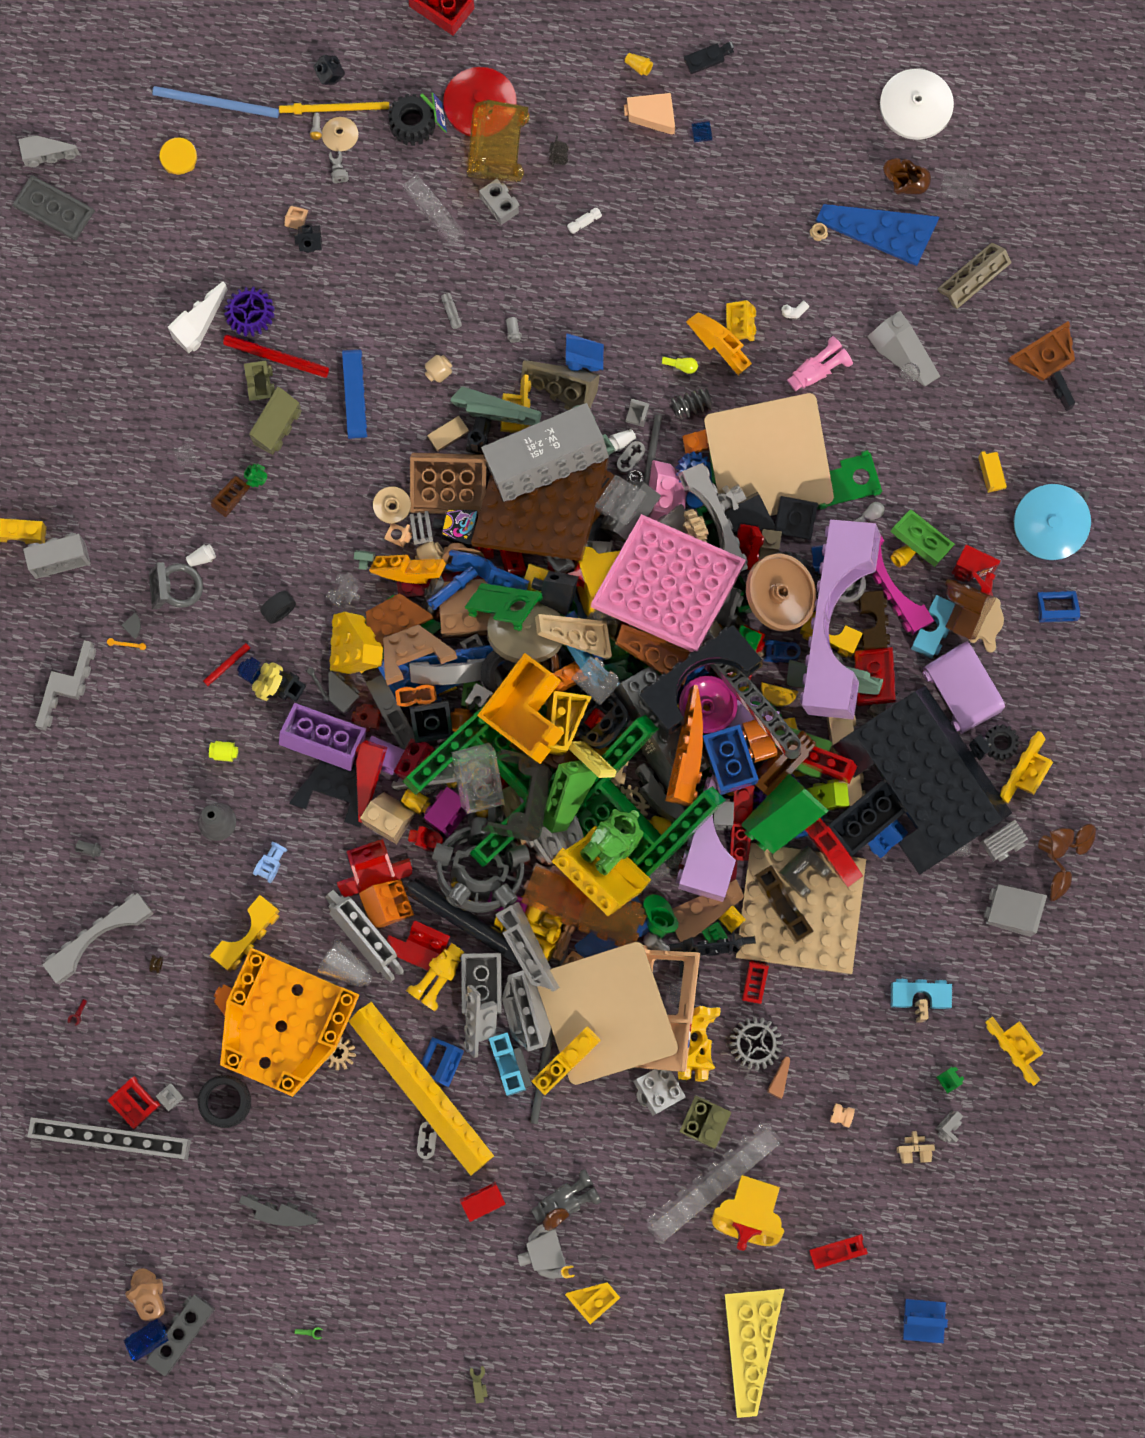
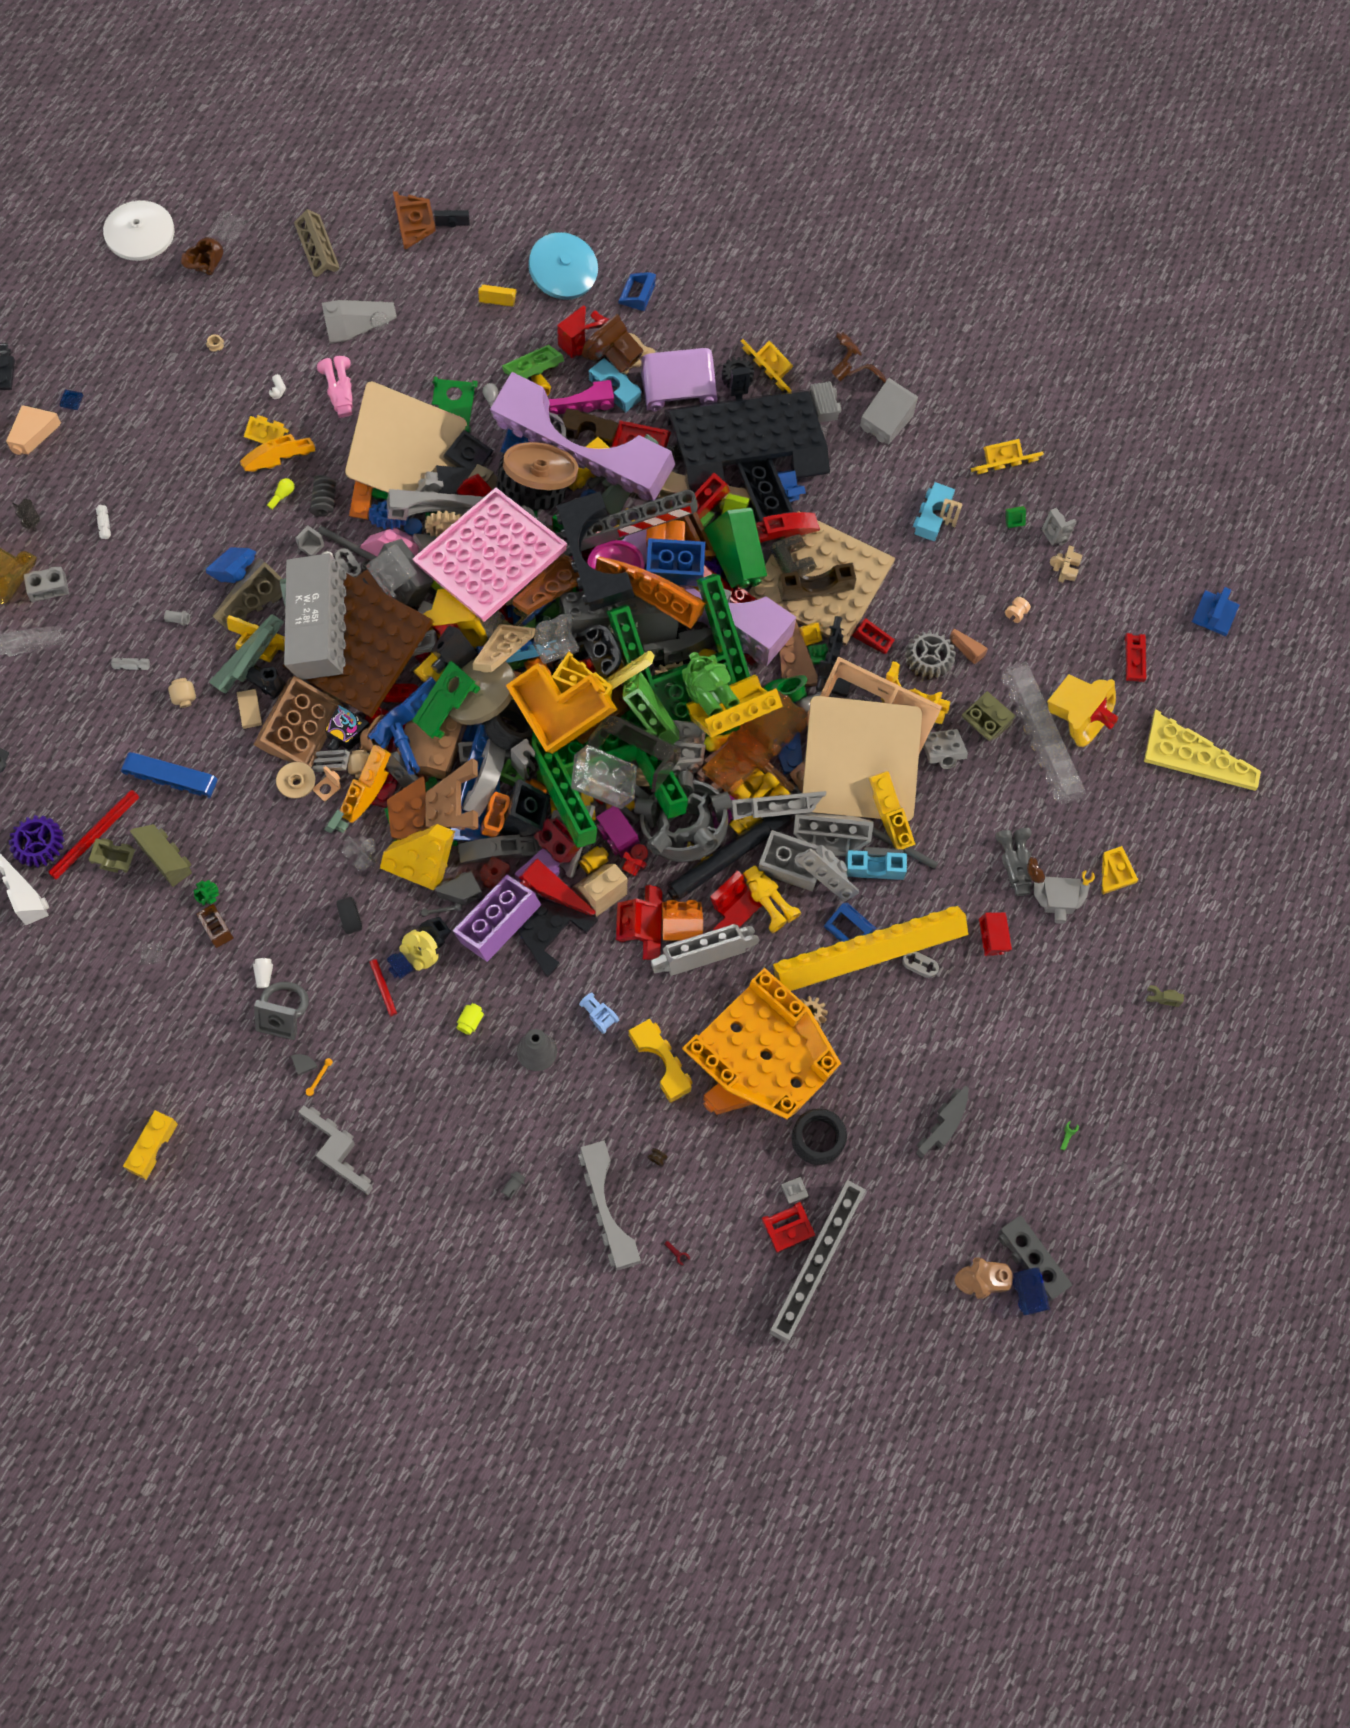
camera: 75 degrees left, 10 degrees down
(56, 555) = (197, 1108): light grey brick -> none
(344, 966) = (726, 978): clear cone -> none
(891, 232) = (244, 290): blue wing -> none

